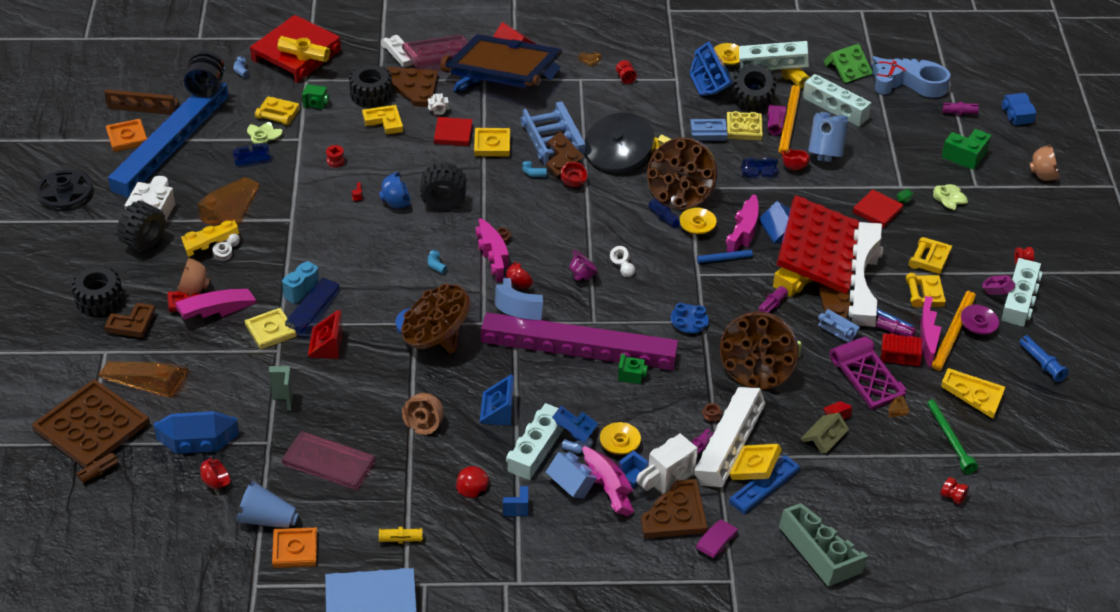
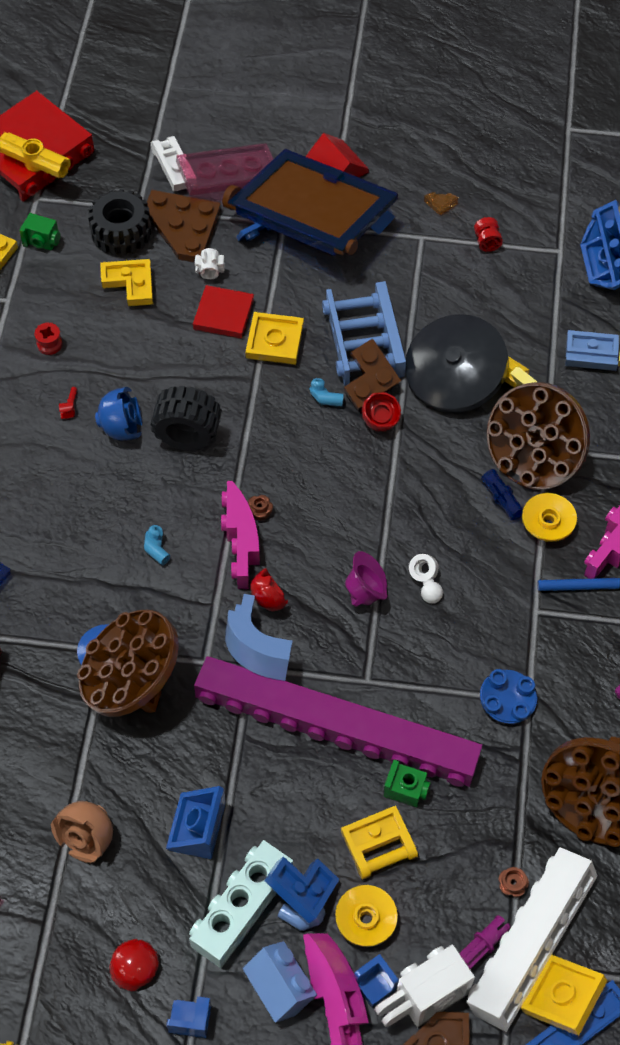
camera: 10 degrees right, 15 degrees up
(618, 396) = (374, 833): none -> yellow plate

